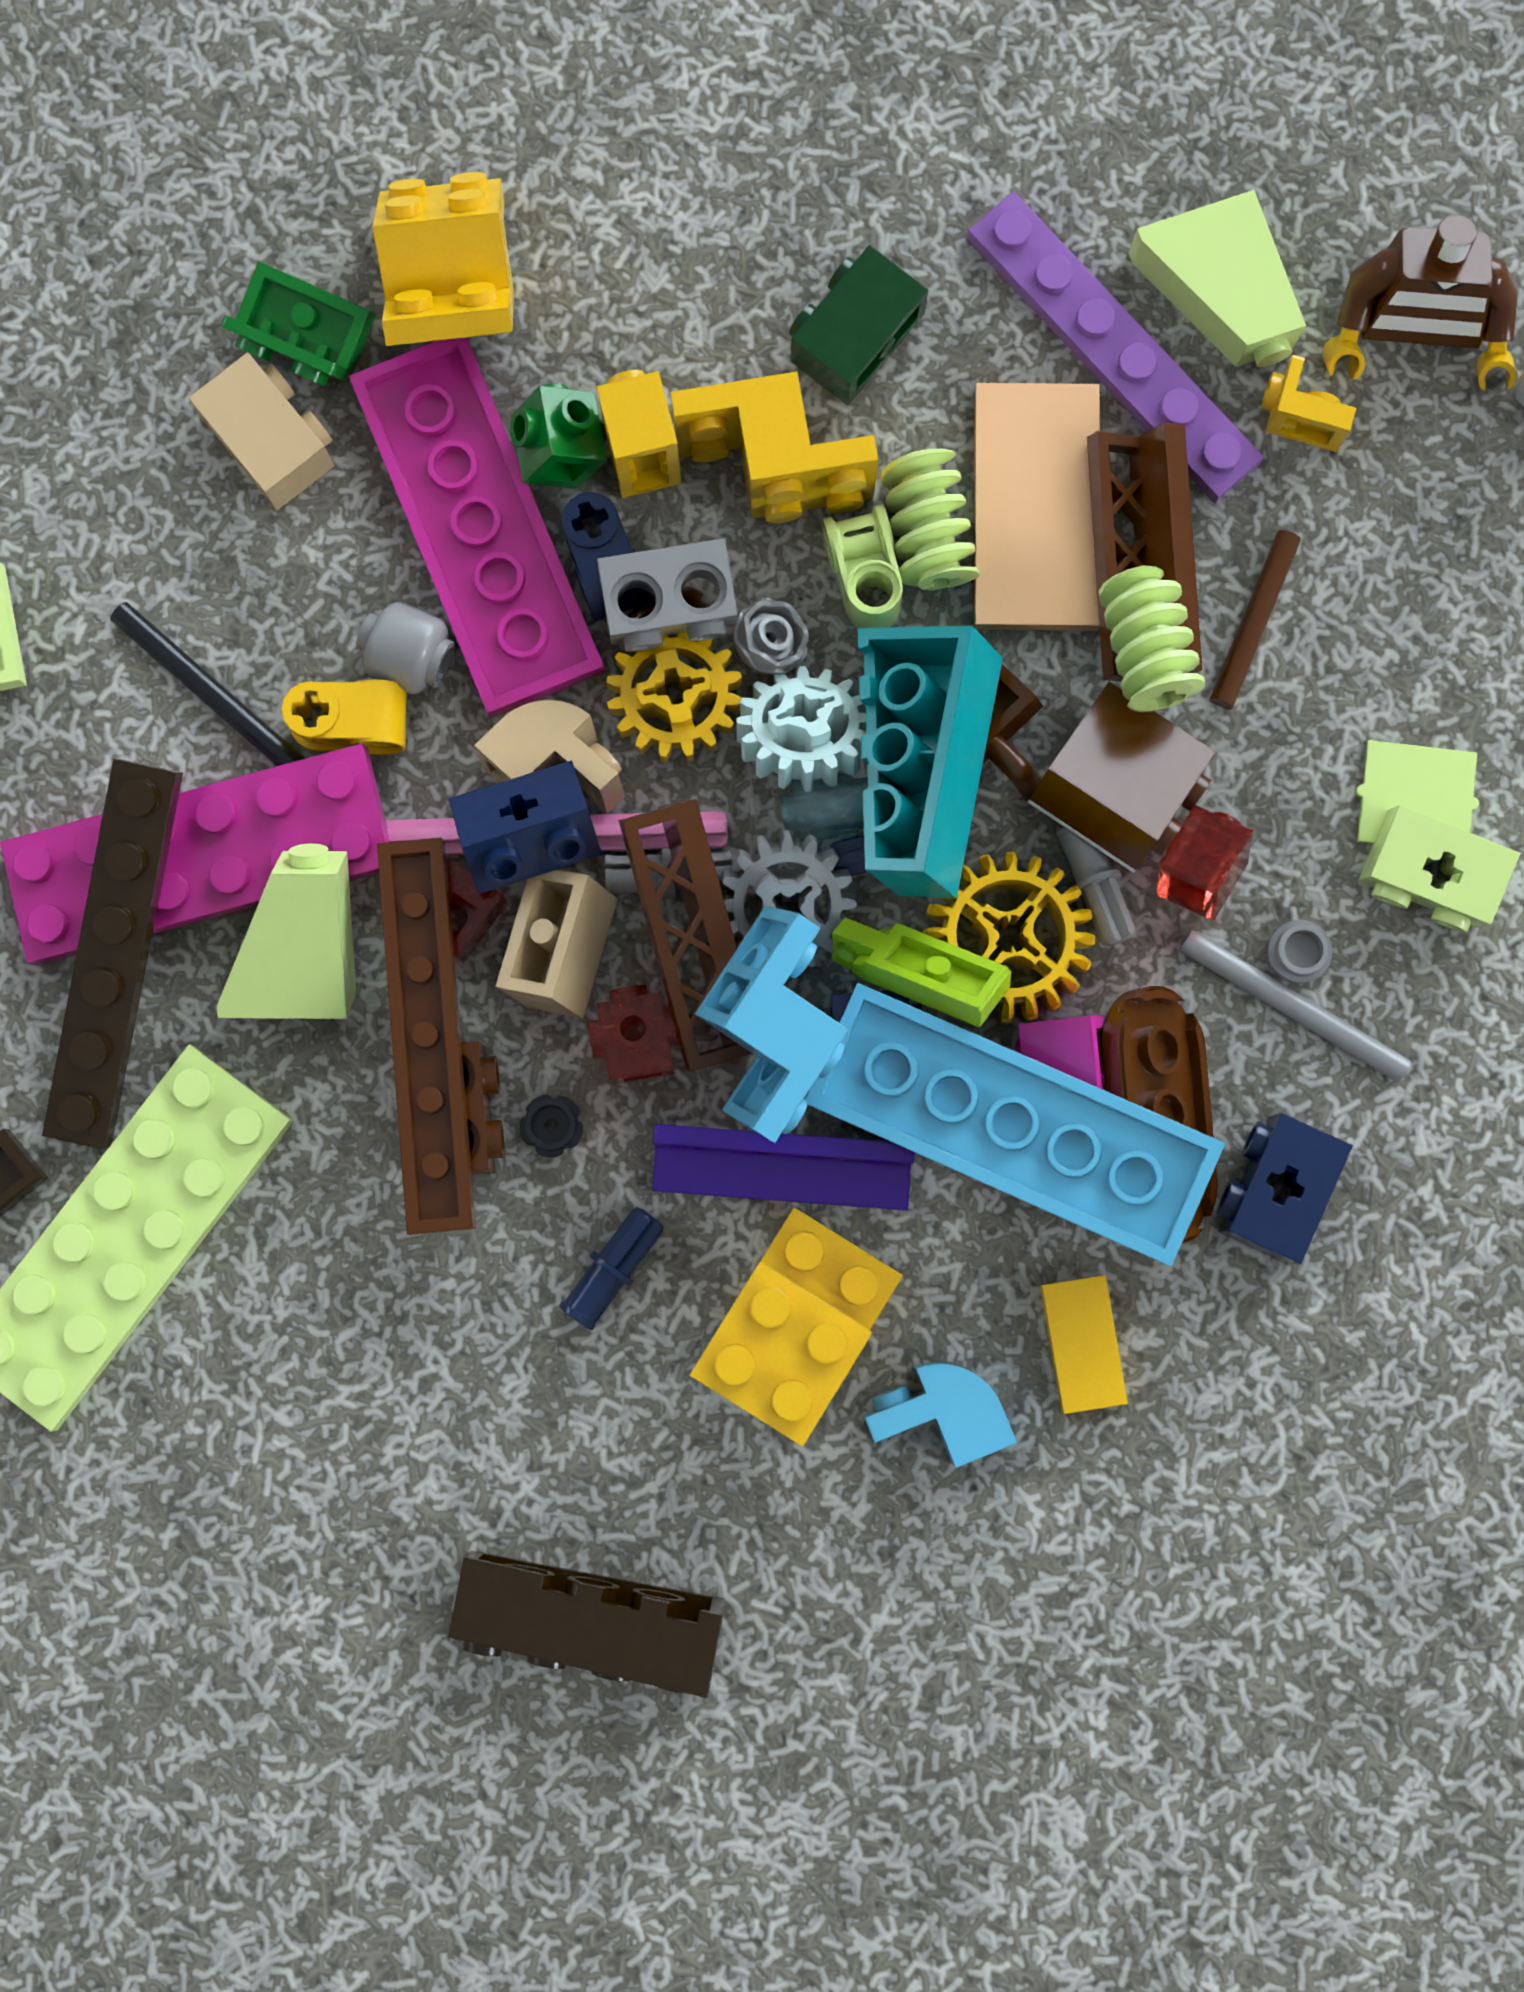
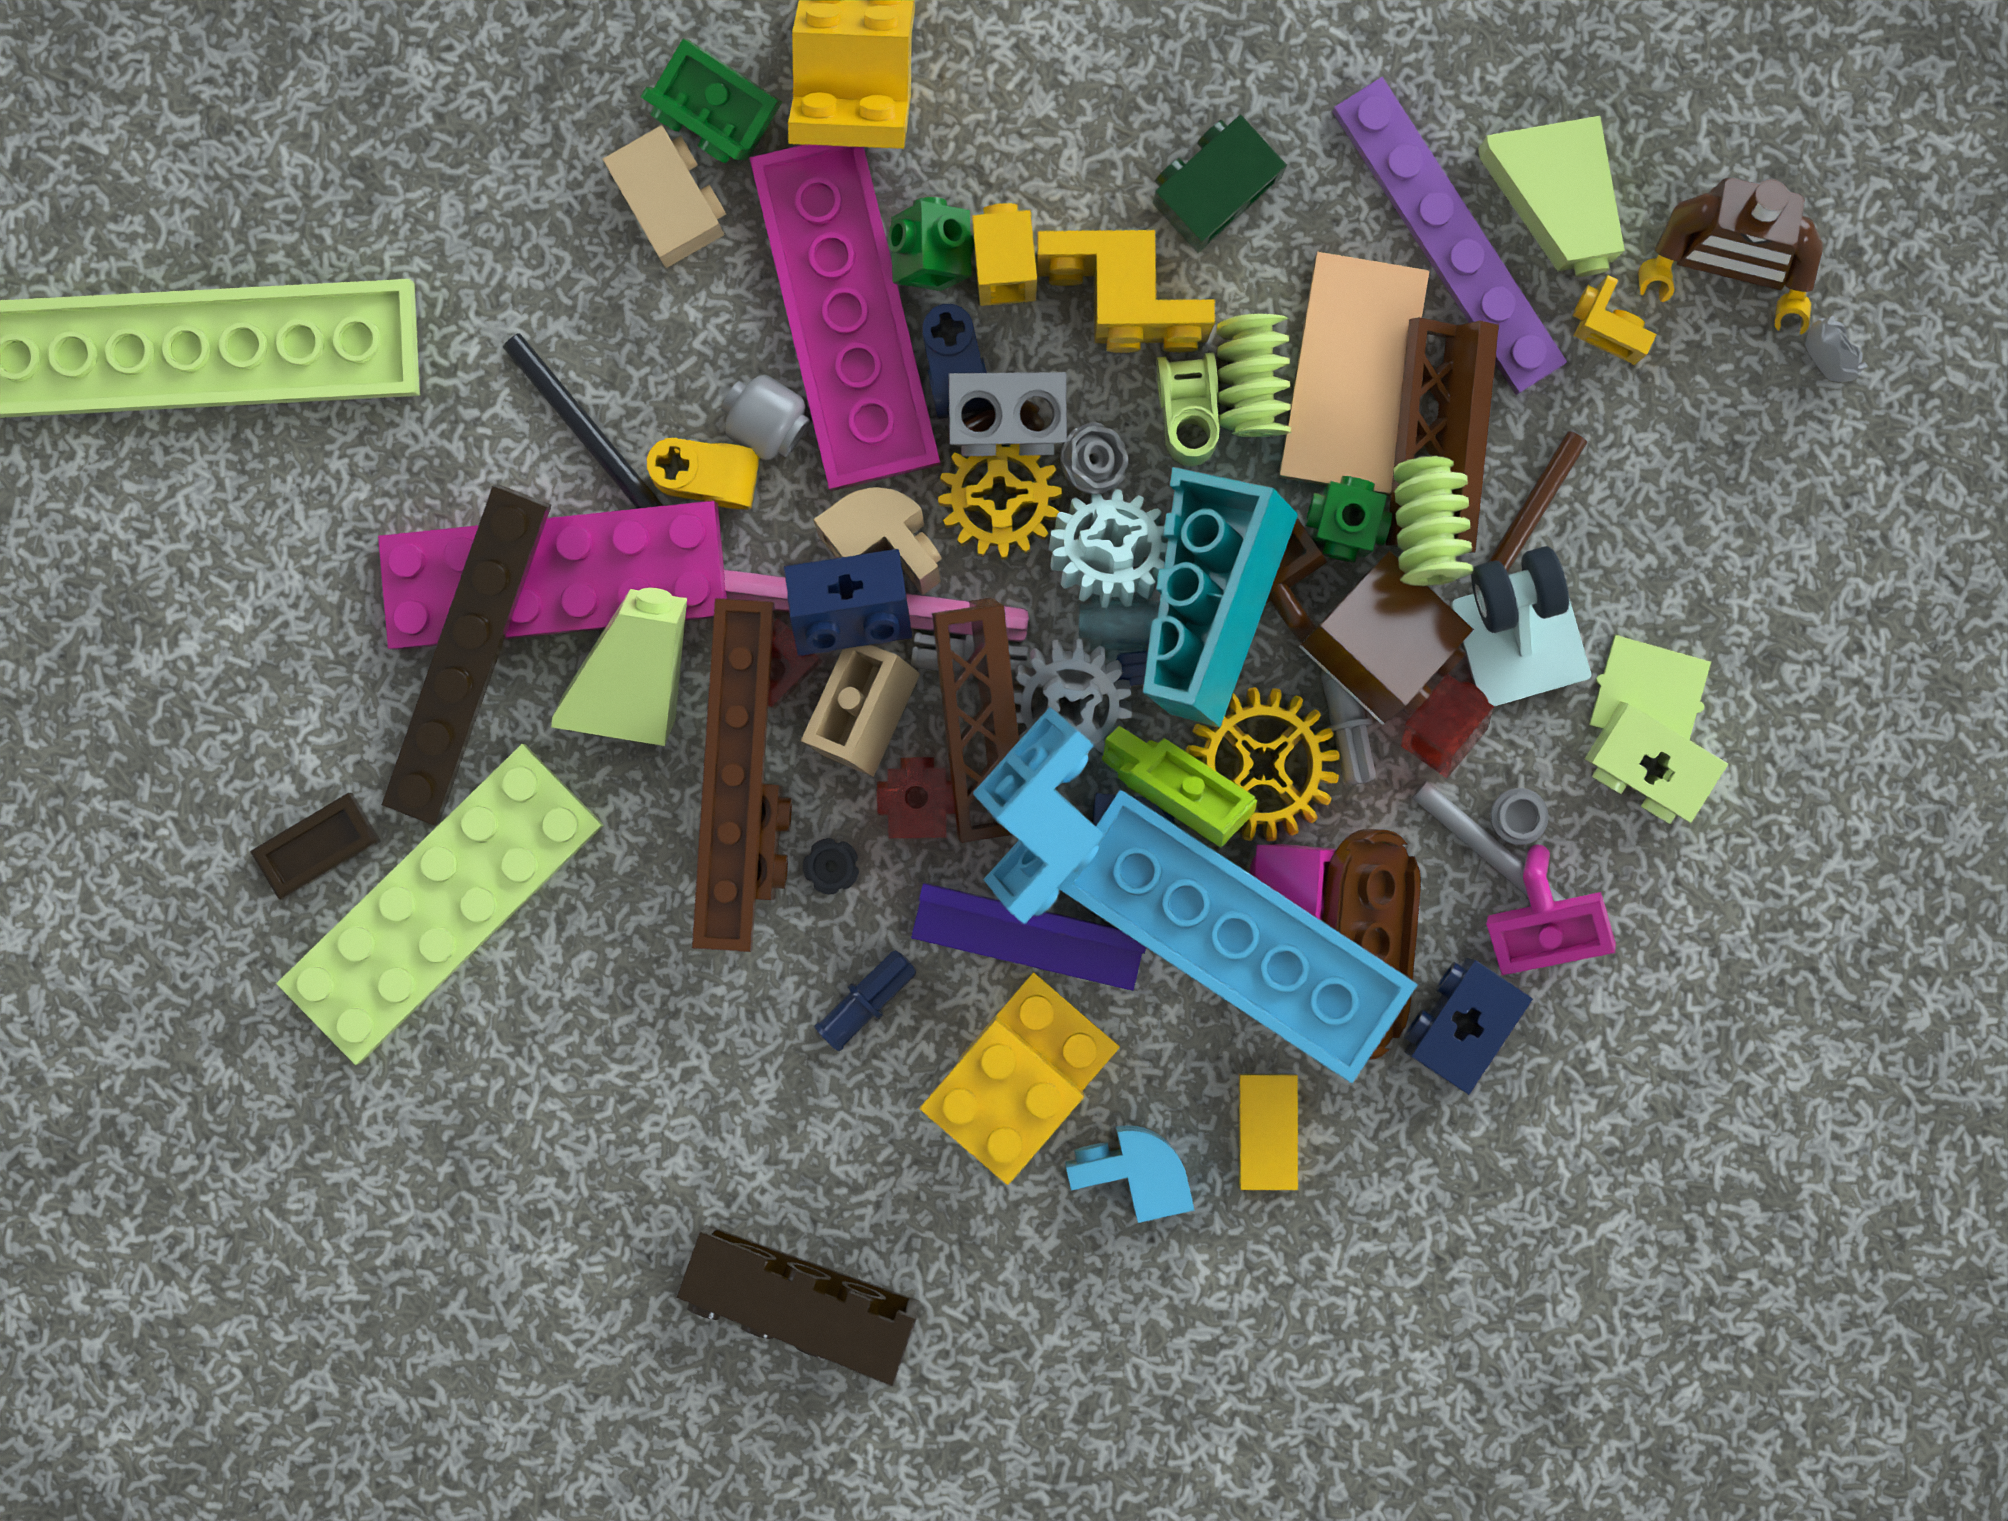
camera: 15 degrees right, 5 degrees up
(1052, 678) = (1332, 533): none -> green brick
(1268, 743) = (1522, 629): none -> light aqua plate
(1355, 1068) = (1549, 930): none -> dark pink plate

